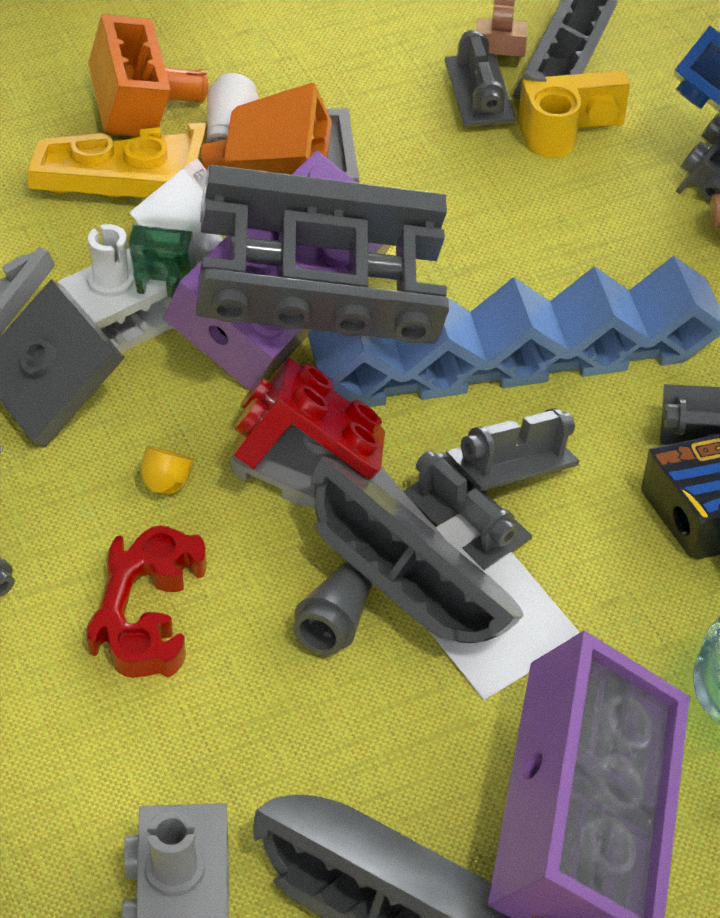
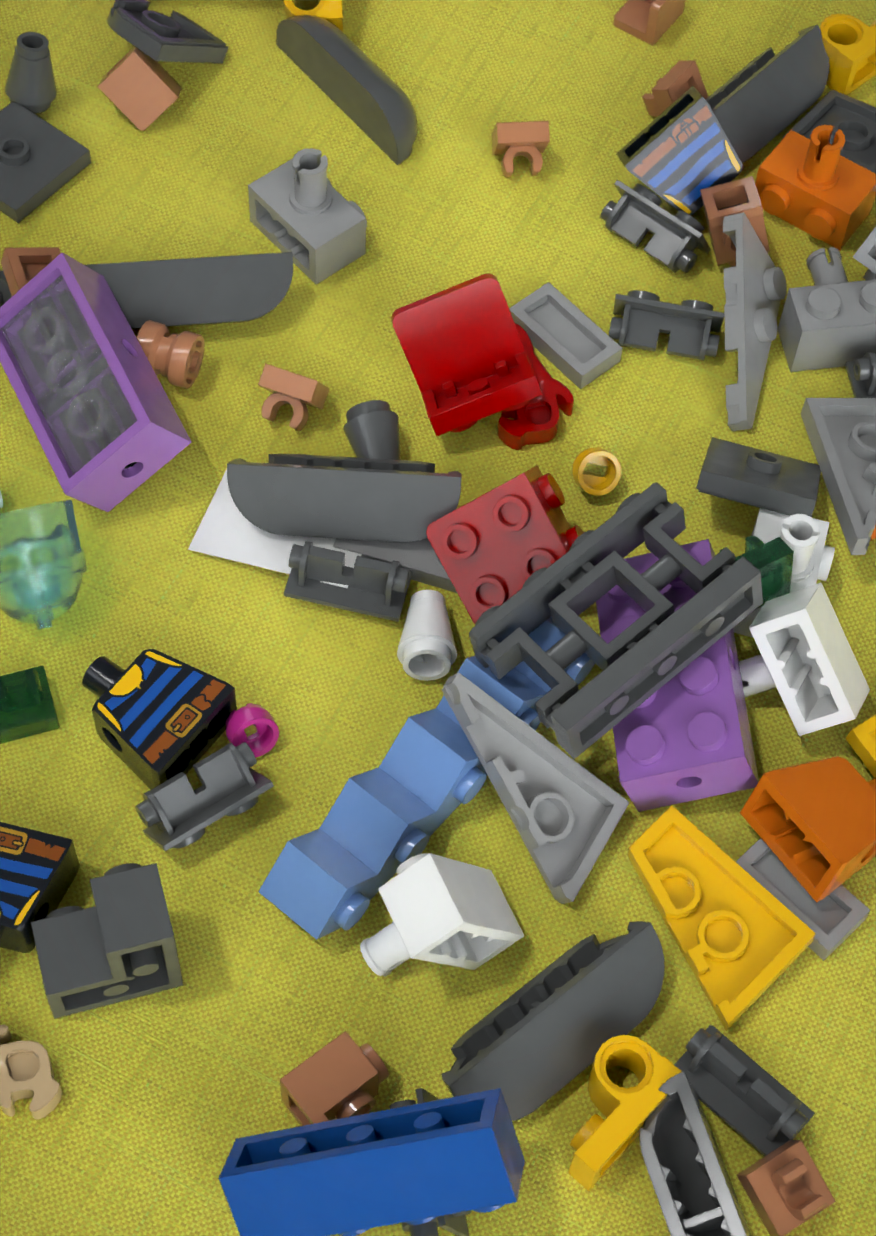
camera: 140 degrees right, 10 degrees up
(49, 614) = (566, 335): none -> light grey tile
(199, 575) = (465, 354): none -> red bracket
(369, 702) = (293, 390): none -> nougat tile
(400, 145) = (717, 913): none -> yellow wing
(439, 426) = (427, 637): none -> white cone
(463, 819) = (172, 354): none -> nougat wheel
(466, 268) = (550, 797): none -> light grey wing
(504, 455) = (350, 646): dark grey hinge -> none
(575, 169) = (560, 1020): none -> dark grey brick
(607, 223) = (441, 916): none -> white brick
(636, 445) = (266, 728): none -> dark pink hinge

